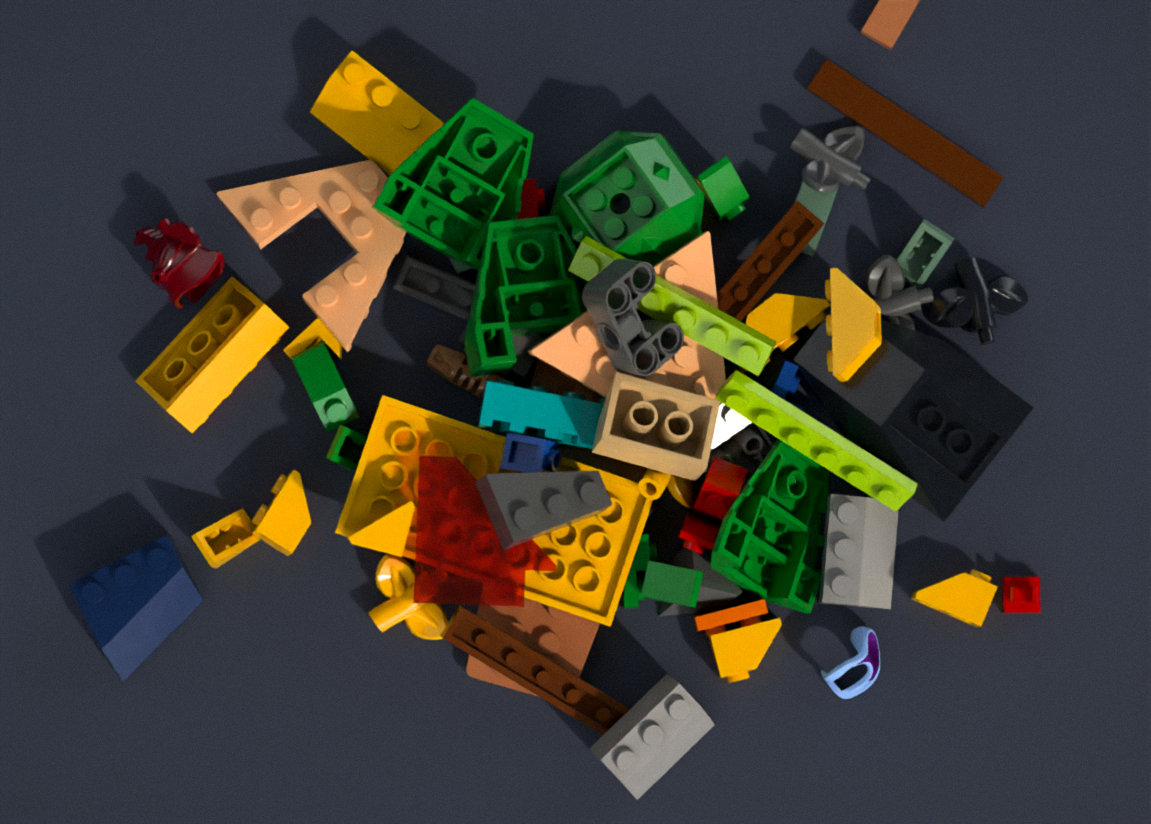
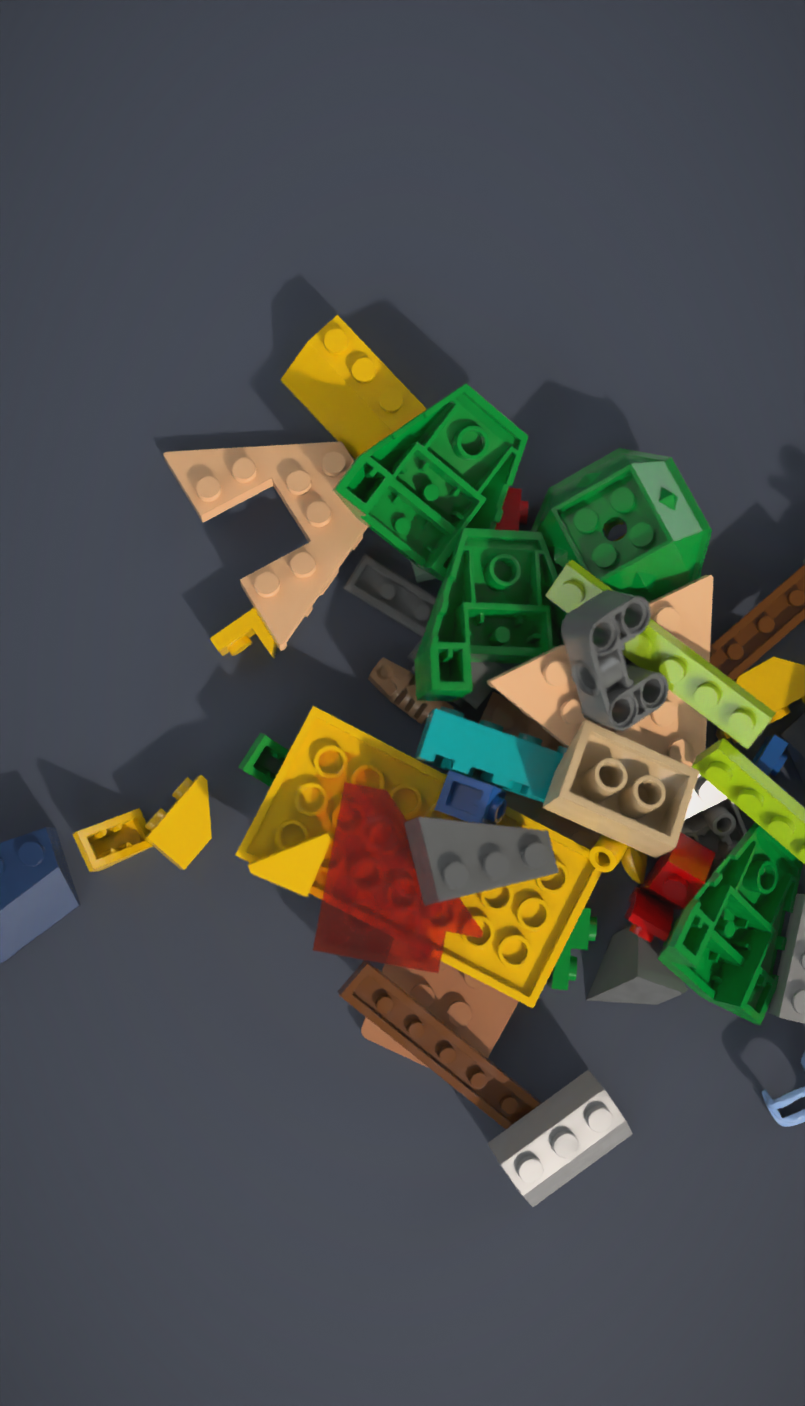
camera: 15 degrees right, 0 degrees up
(180, 260) = (110, 521): dark red helmet -> none
(212, 354) = (130, 632): yellow slope -> none
(325, 386) = (250, 686): green slope -> none
(396, 582) = (298, 919): yellow plant -> none
(671, 584) = (611, 971): green slope -> none
(723, 190) = (732, 532): green slope -> none
(742, 648) = (678, 1053): yellow slope -> none
(747, 615) = (686, 1013): orange plate -> none

